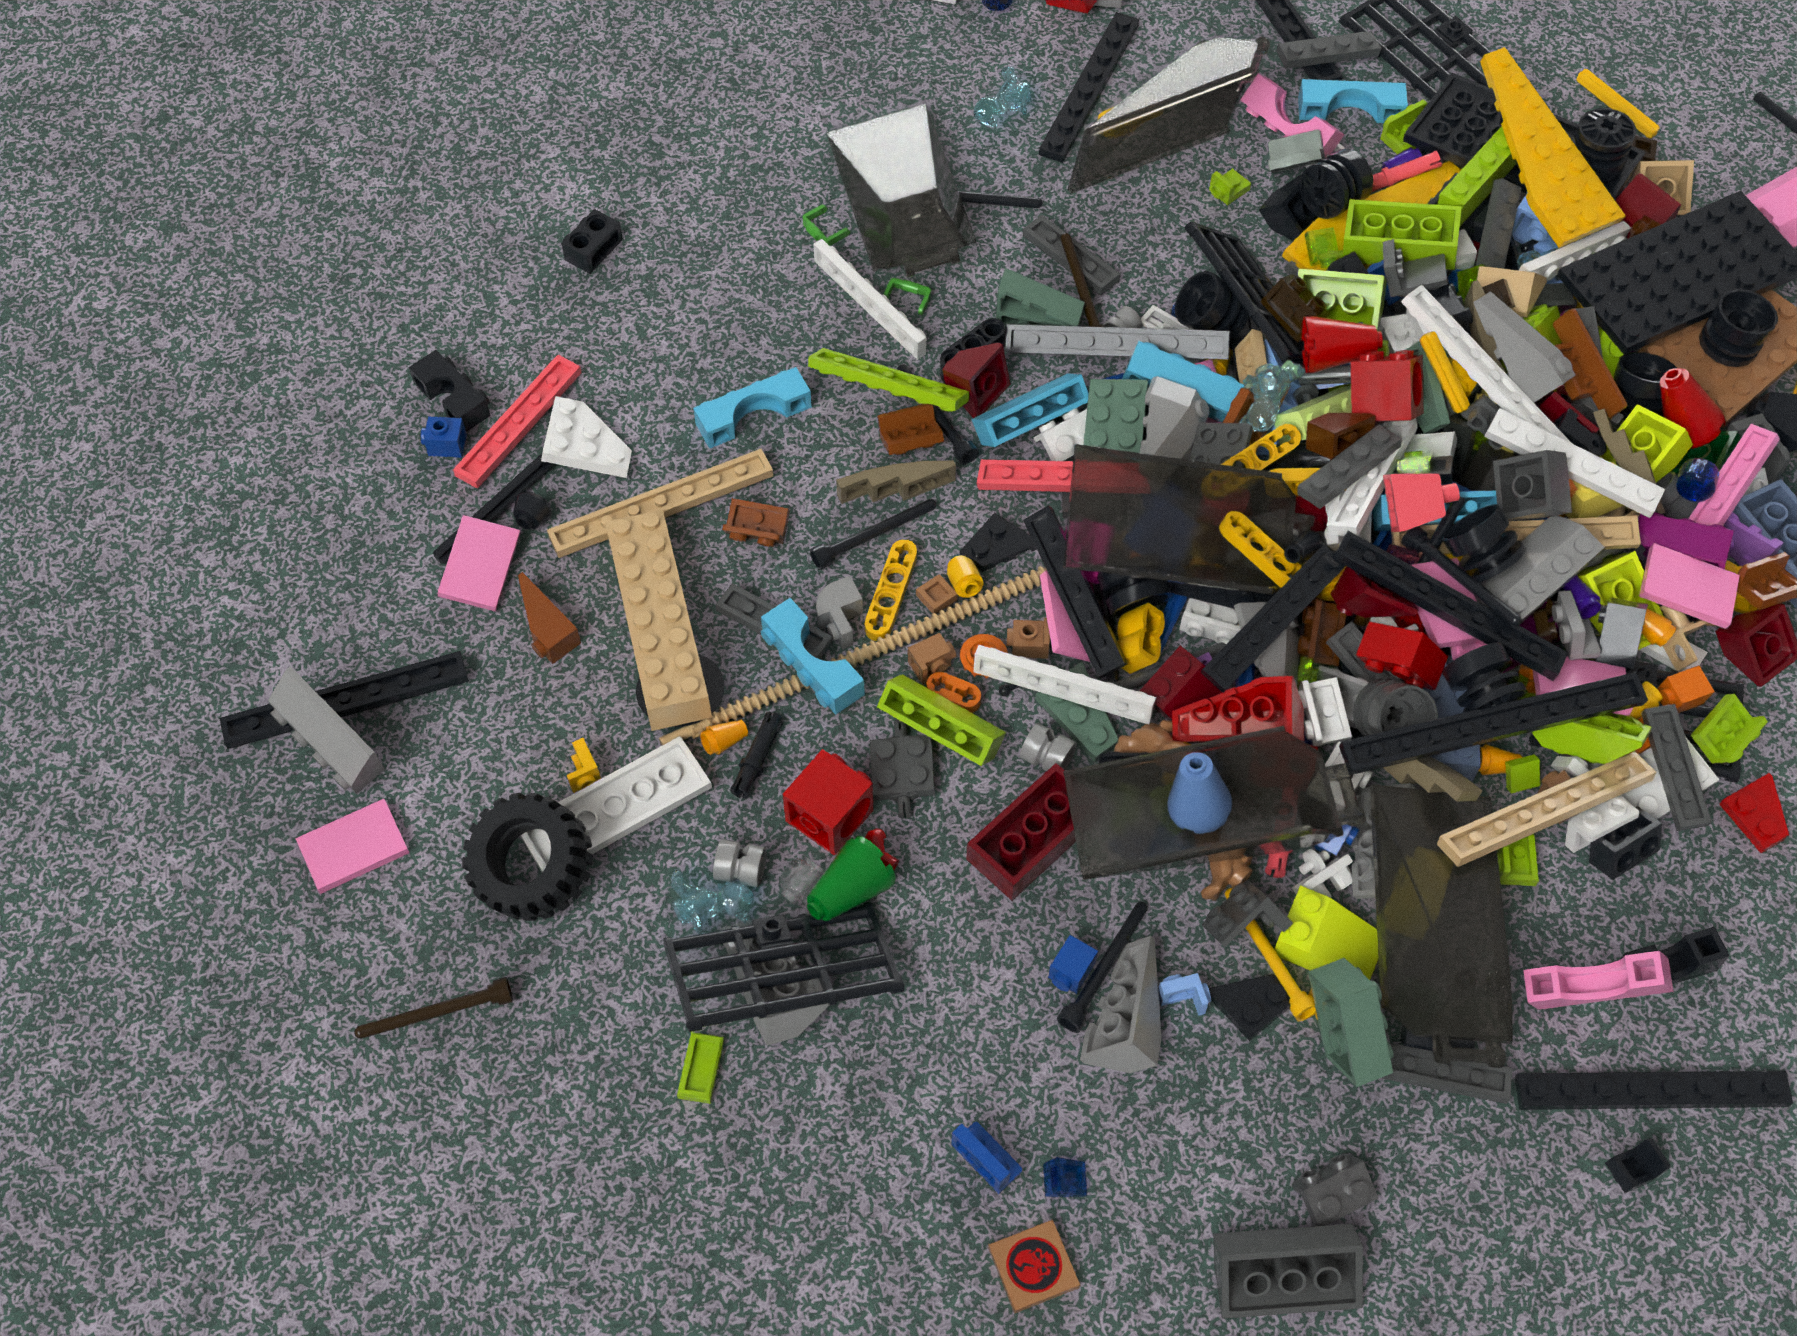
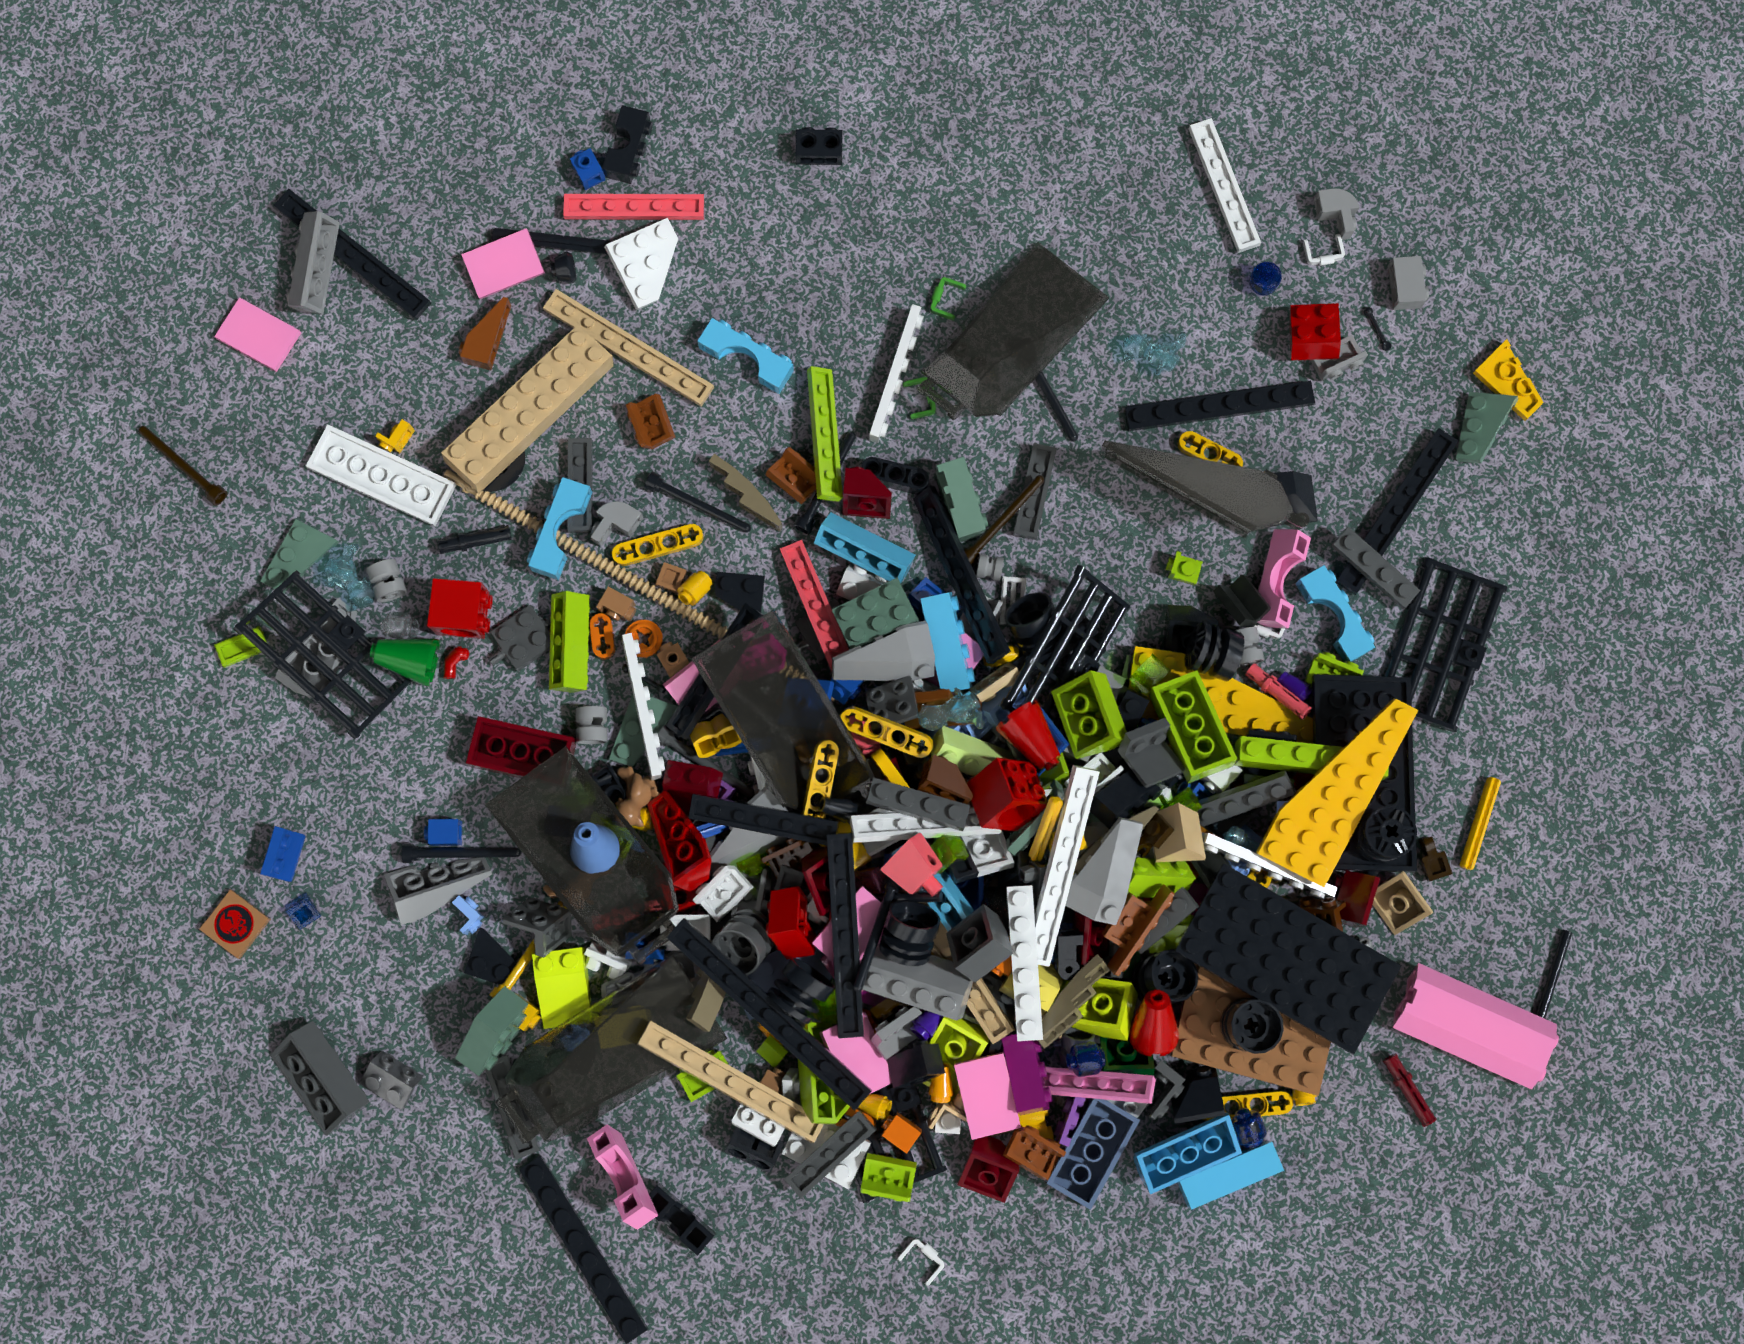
camera: 55 degrees right, 20 degrees up
(492, 841) = (278, 437): black tyre -> none
(637, 947) = (297, 552): none -> sand green wing
(723, 736) = (474, 509): light orange cone -> none
(1291, 302) = (1059, 687): dark brown bracket -> none
(1638, 1165) = (517, 1262): black bracket -> none
(1758, 813) = (845, 1228): red wing -> none

